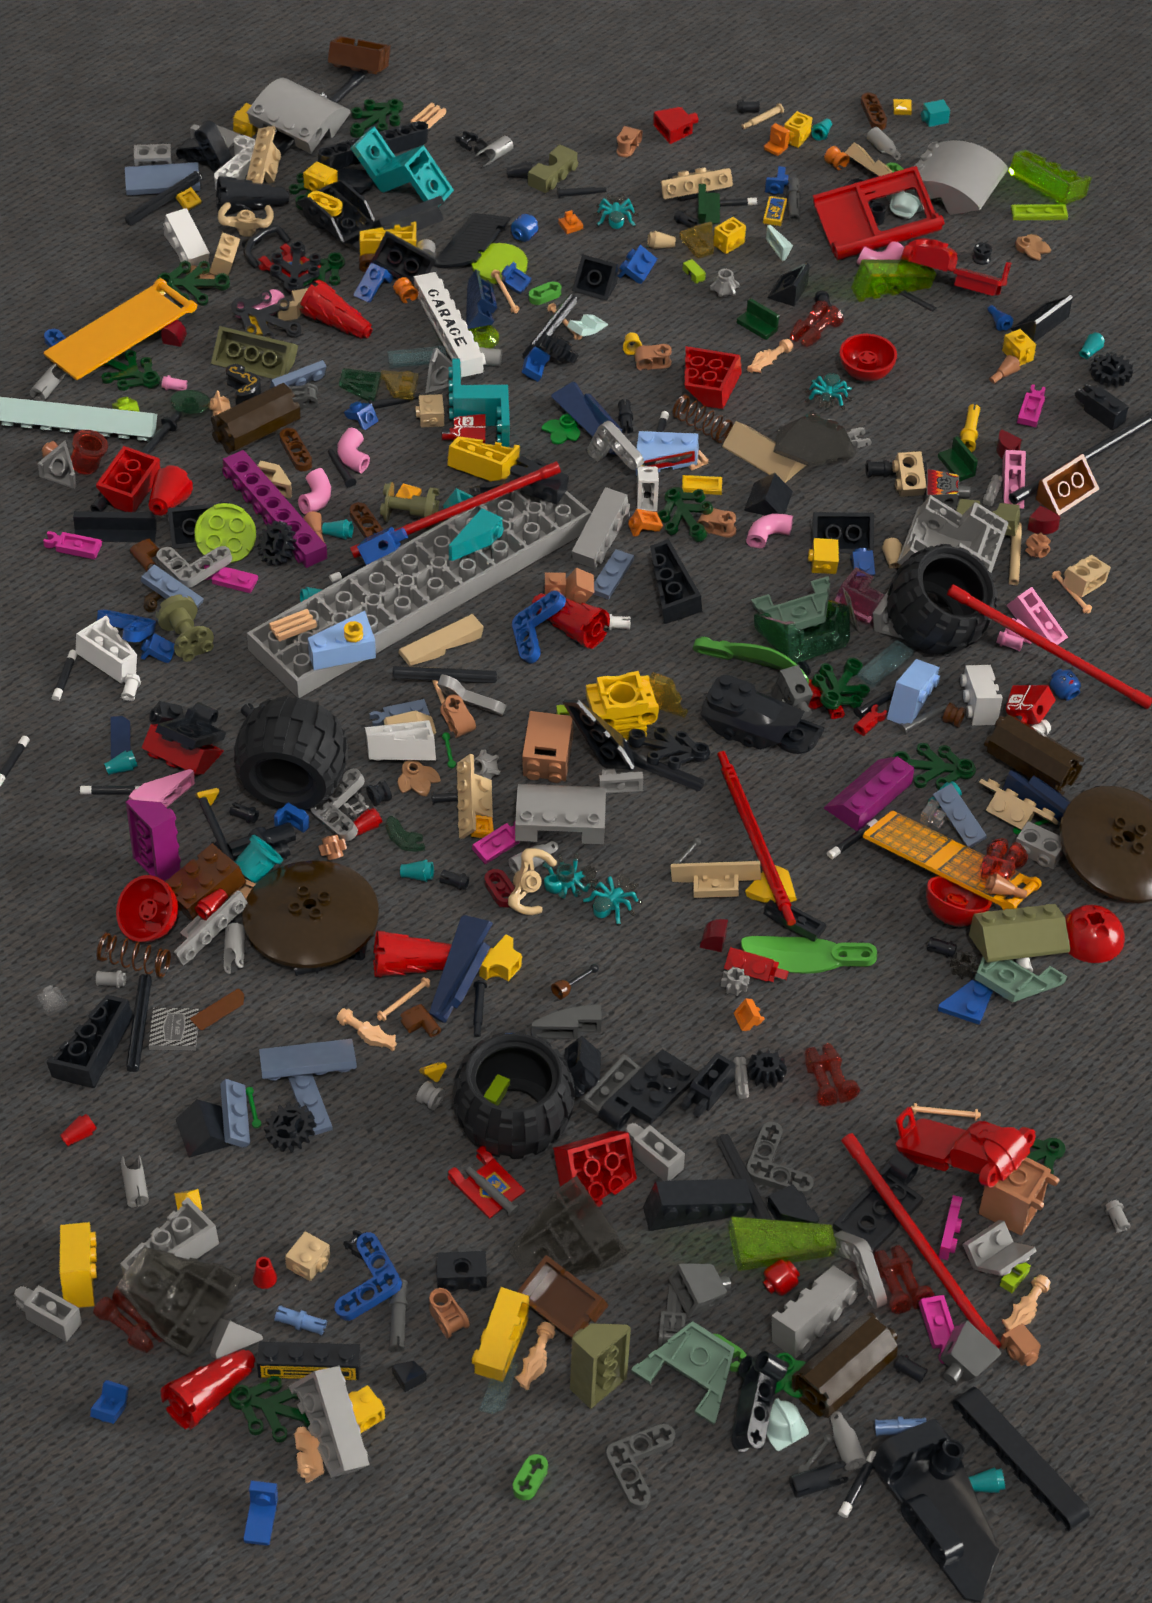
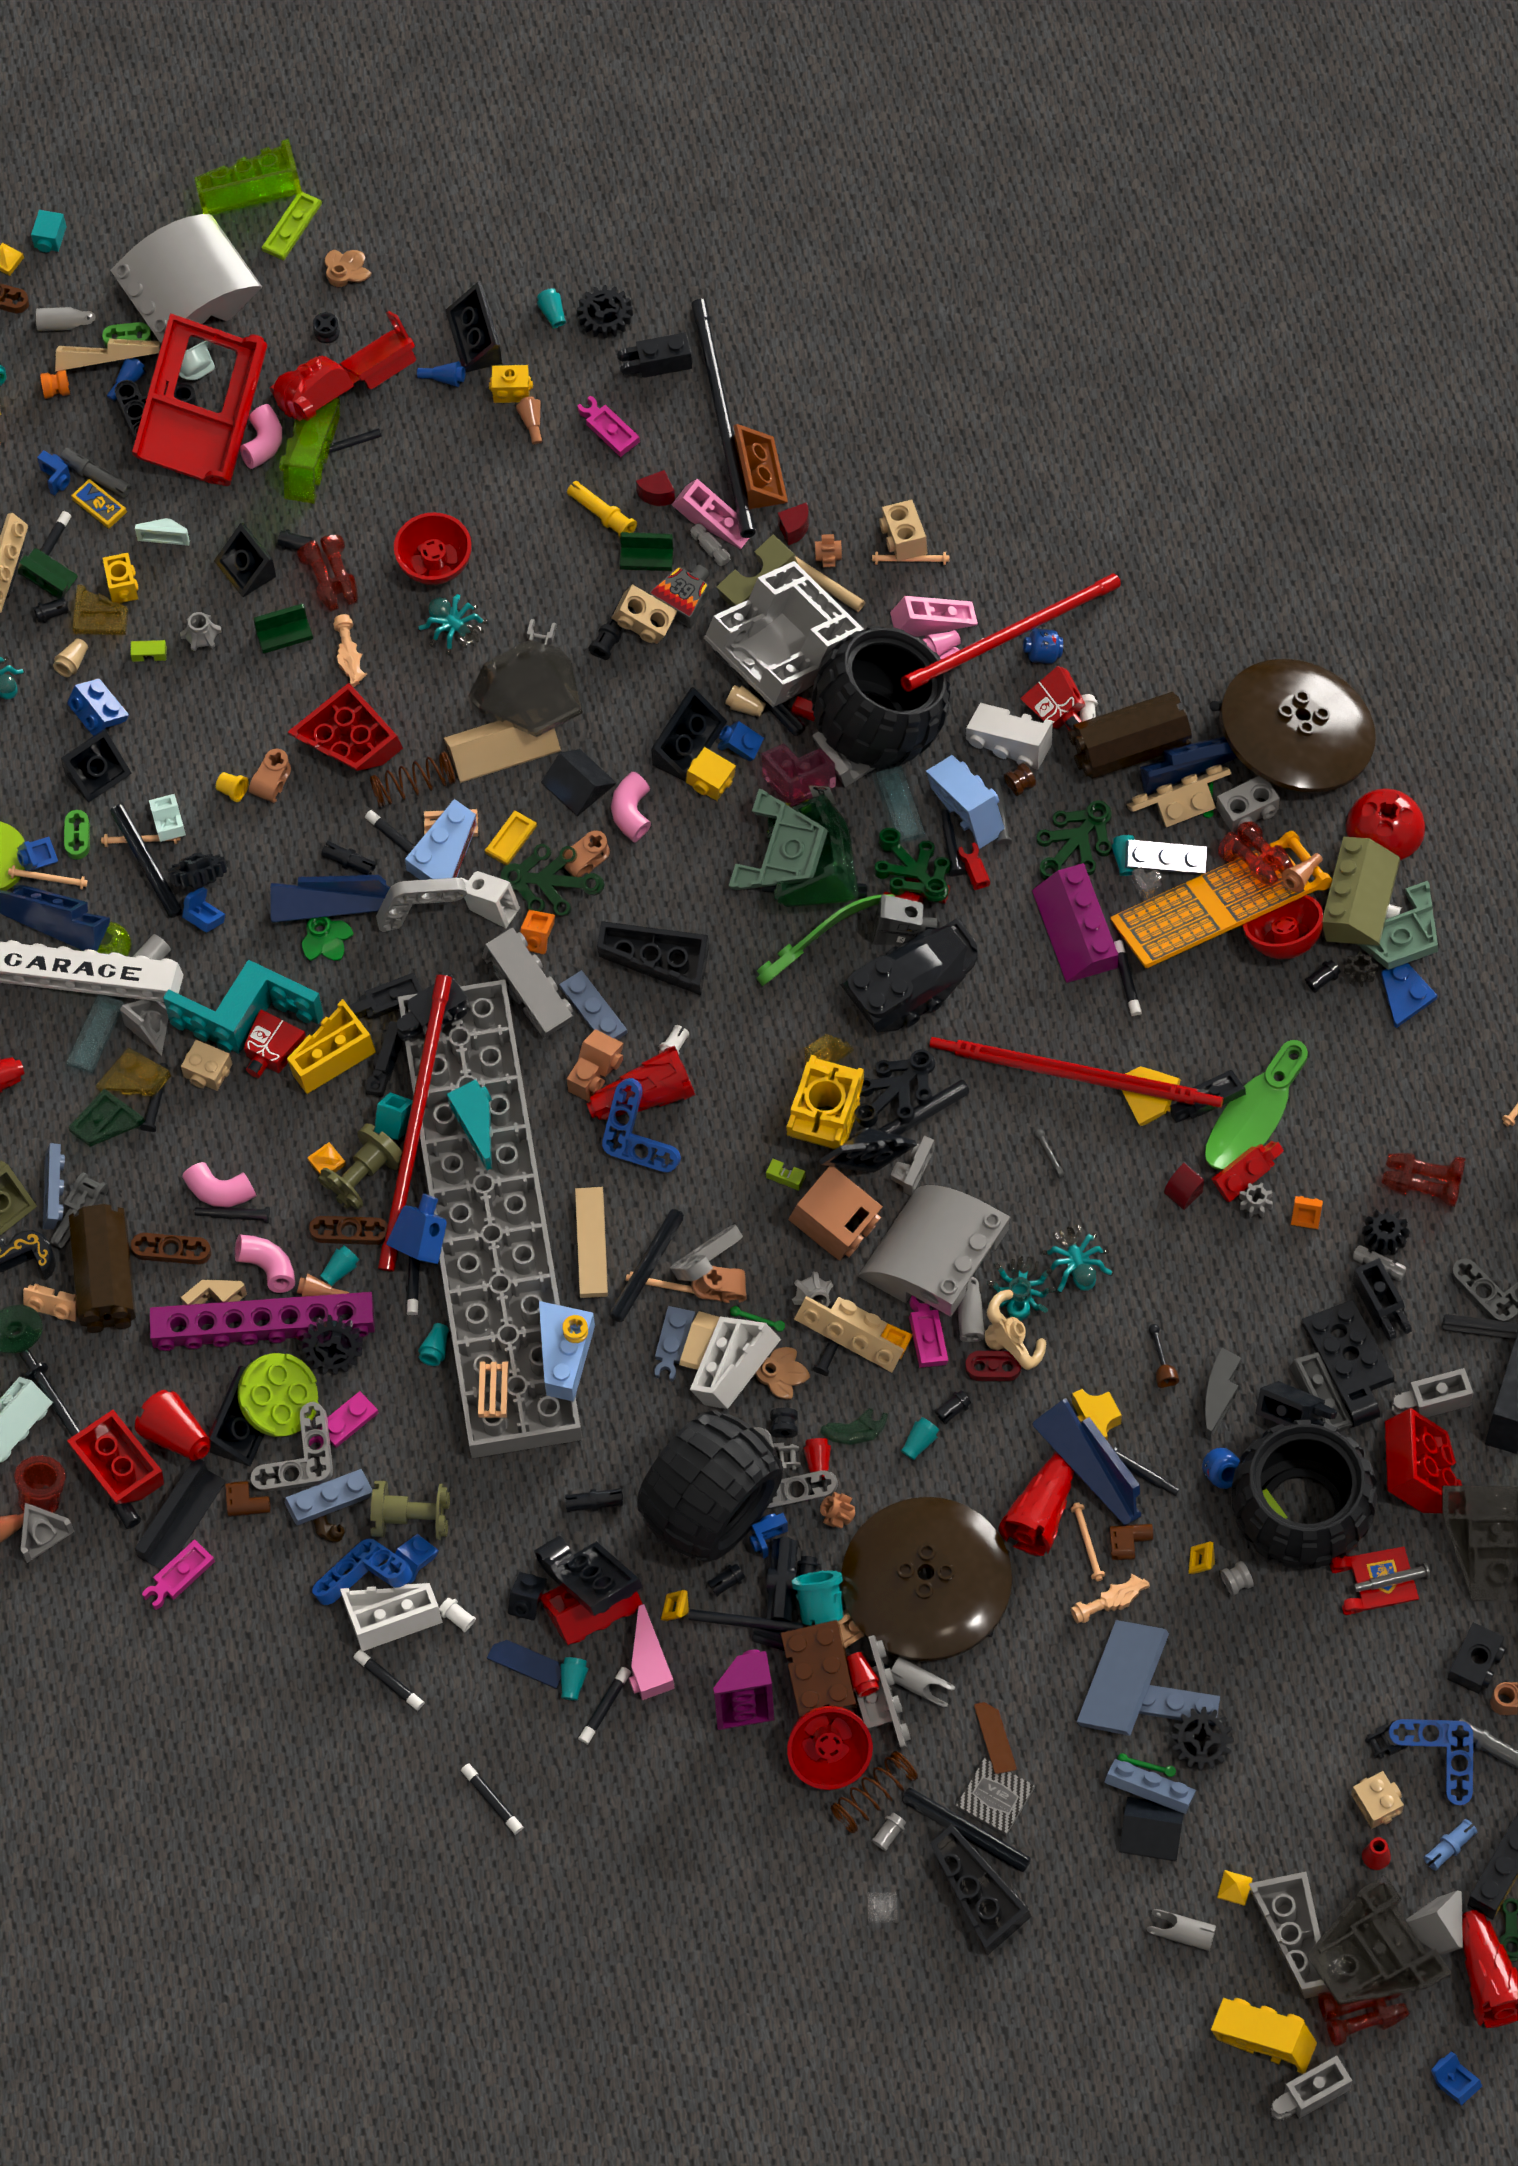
camera: 55 degrees left, 15 degrees up
(78, 1130) = (1083, 1957): red cone -> none
(363, 413) = (157, 1145): blue bracket -> none
(716, 878) = (1112, 1144): tan bracket -> none

